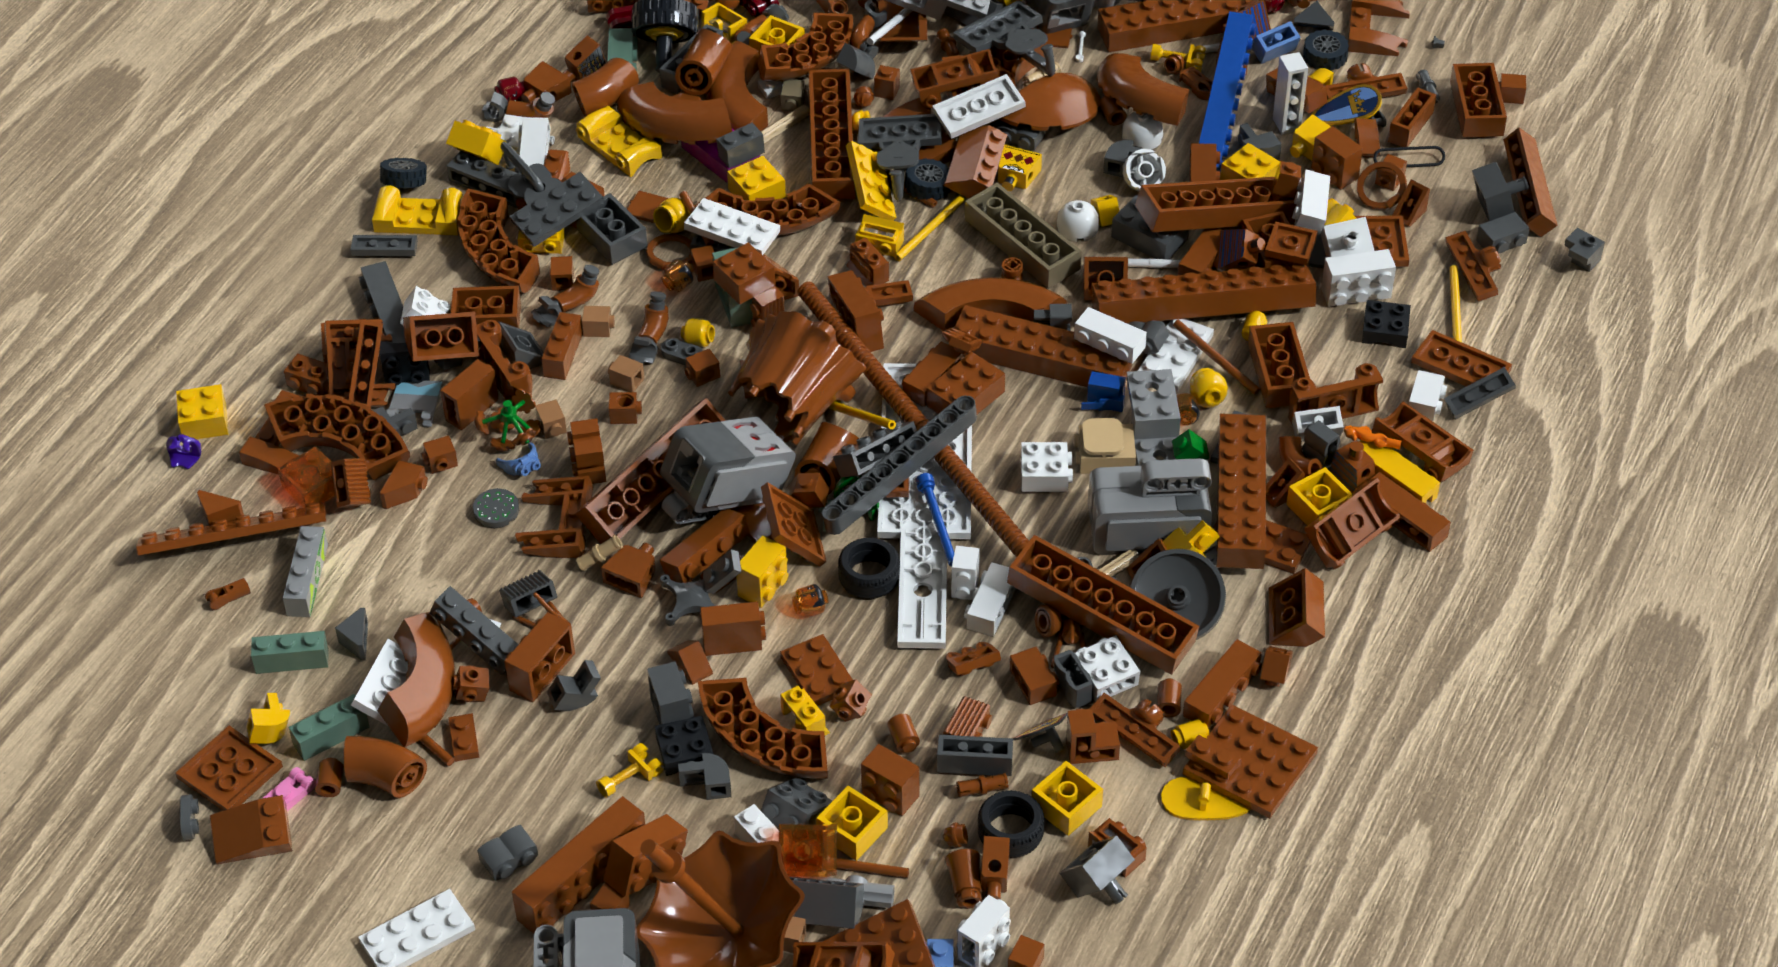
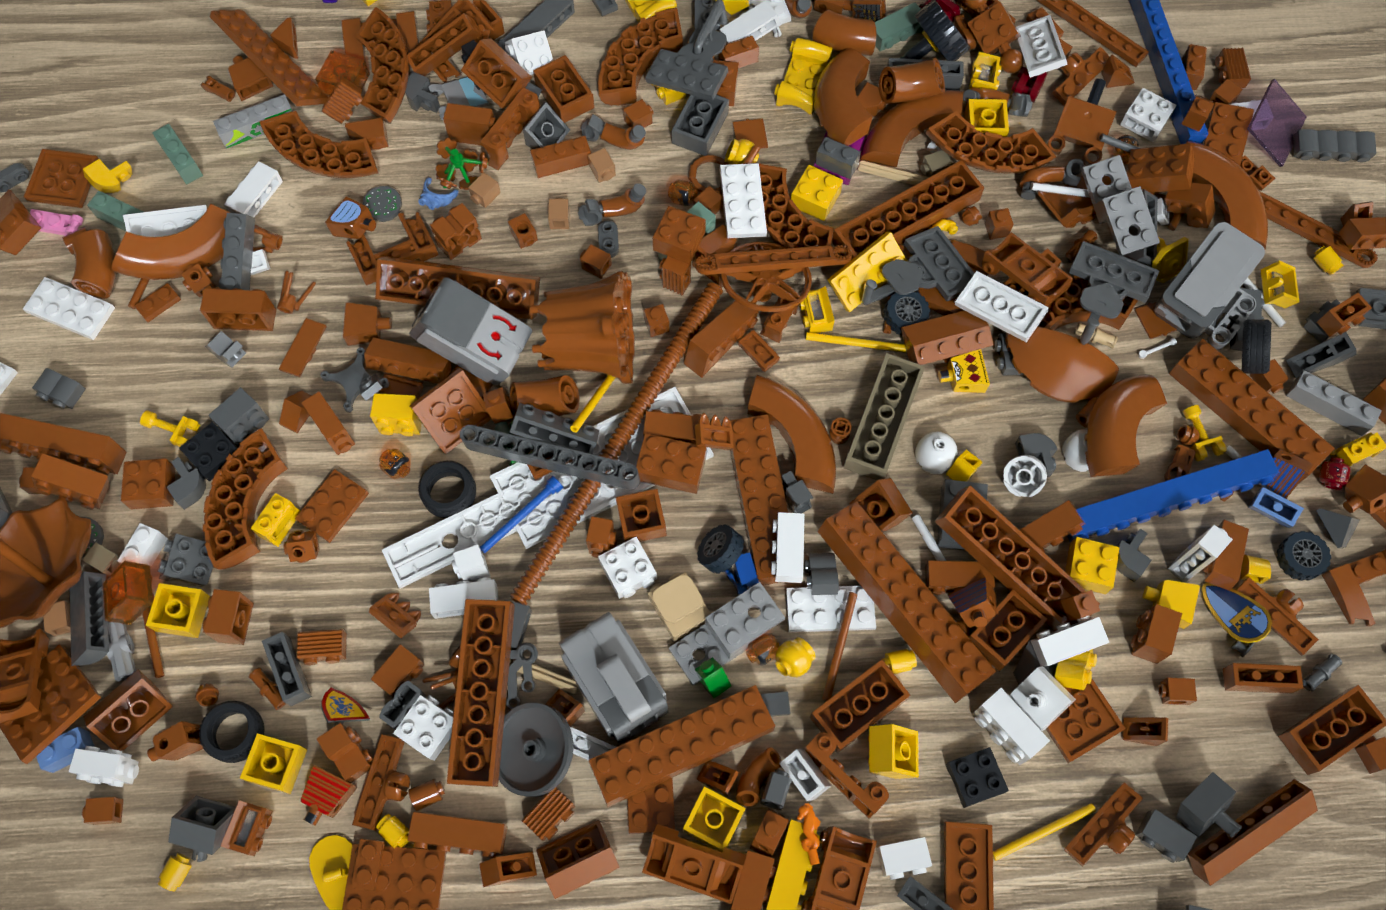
camera: 60 degrees right, 20 degrees up
(238, 559) = (248, 78): none -> dark orange torso
(353, 633) = (215, 183): dark grey slope -> none
(390, 599) = (254, 190): none -> white brick
(392, 532) = (316, 152): none -> dark orange brick
(406, 819) = (69, 308): none -> white plate
(439, 454) = (410, 140): dark orange brick -> none
(503, 530) = (350, 220): none -> dark orange torso
(519, 596) = (304, 268): dark grey brick -> none
(599, 553) = (363, 293): tan pin -> none
(622, 626) = (302, 348): none -> dark orange piece
(688, 803) = (146, 483): none -> dark orange brick
(698, 332) = (630, 238): yellow head -> none
(815, 229) = (773, 259): none -> dark orange plate
(826, 250) = (767, 282): none -> dark orange wheel
(857, 60) = (1002, 189): dark grey brick -> none
(903, 733) = (291, 602): dark orange brick -> none
(931, 899) = (127, 711): none -> dark orange slope
(965, 876) = (168, 716): dark orange plant -> none
(1000, 436) = (641, 515): none -> dark orange brick
(1003, 469) = (600, 536): none -> dark orange brick
(1073, 391) = (720, 549): none -> black wheel
(1120, 773) = (325, 794): none -> torso
(1125, 920) = (174, 872): none -> yellow brick
(1197, 540) = (586, 732): yellow brick -> none
(1243, 615) = (549, 814): none -> dark orange brick
(1291, 243) = (1003, 647): dark orange plate -> none
(1327, 354) = (893, 751): none -> yellow brick
(1367, 136) = (1210, 647): dark orange slope -> none
(1393, 200) = (1146, 712): dark orange piece -> none
(1414, 148) = (1222, 694): black piece -> none

